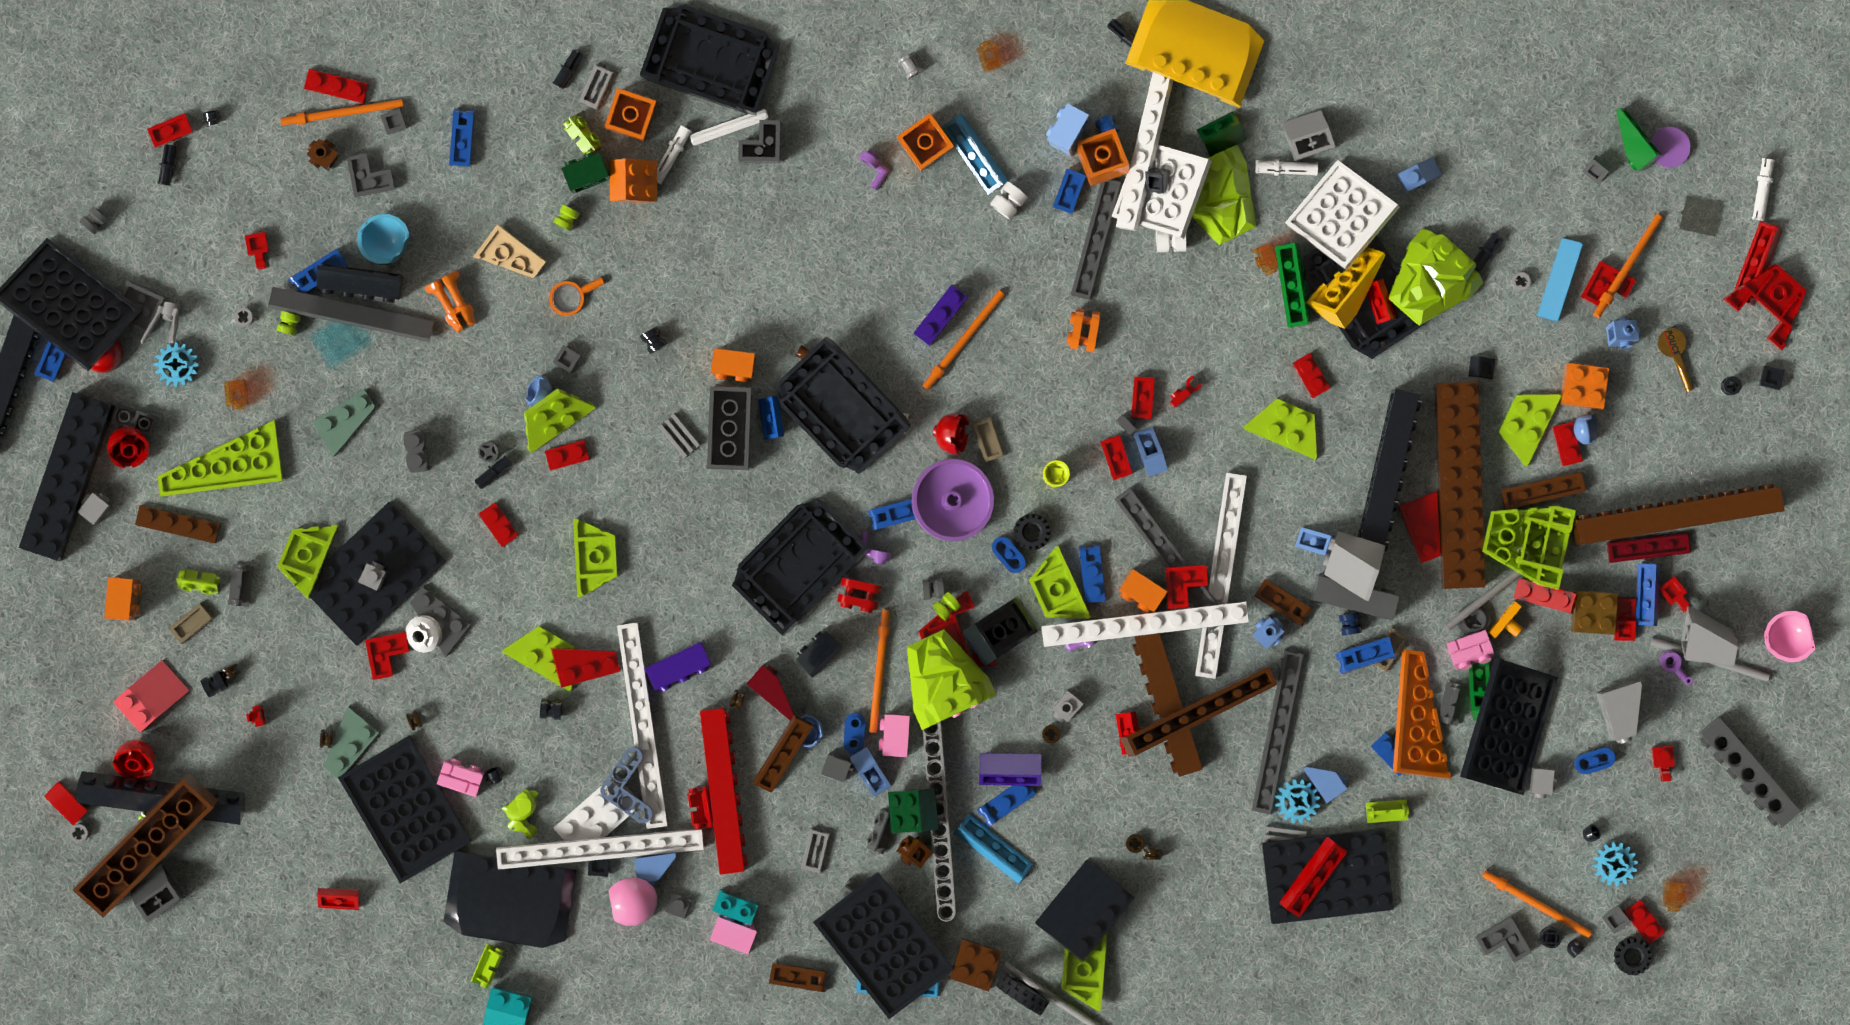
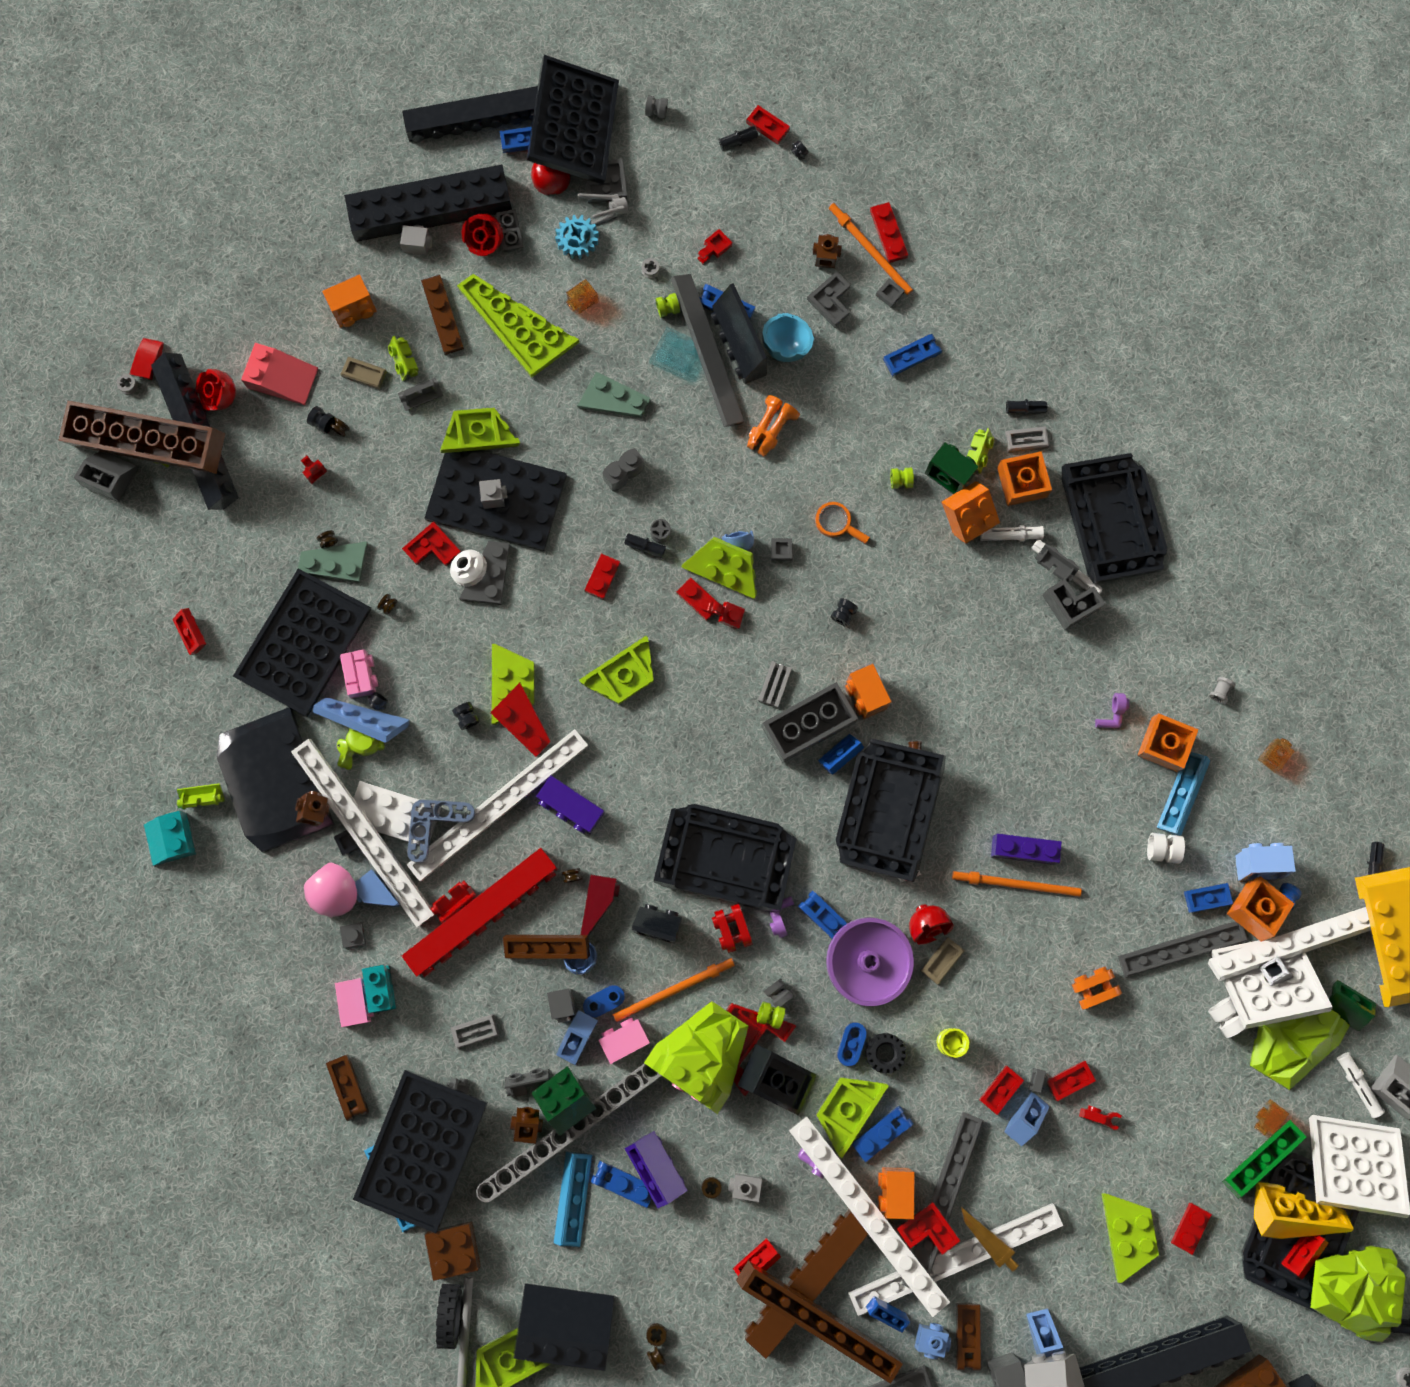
camera: 55 degrees right, 10 degrees down
(504, 795) = (364, 720): none -> medium blue wing
(509, 252) = (841, 448): tan wing -> none
(556, 878) = (312, 808): none -> reddish brown brick
(596, 438) = (729, 613): none -> red plate
(727, 132) = (1051, 557): none -> dark grey hinge
(1228, 654) = (887, 1314): none -> blue piece
(1230, 539) = (993, 1245): none -> pearl gold bar

